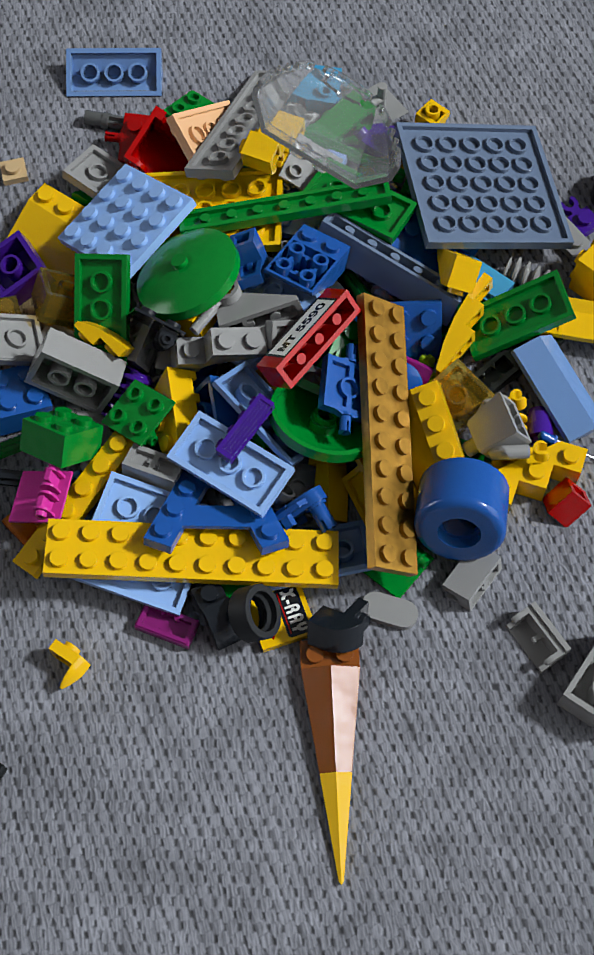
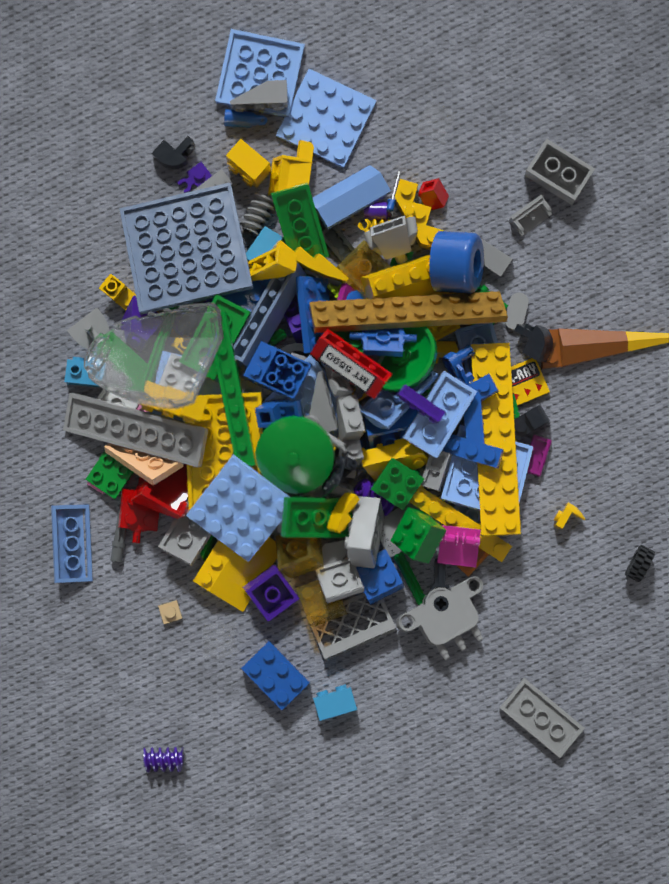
camera: 90 degrees left, 20 degrees up
(241, 617) = (533, 403): black tyre -> none

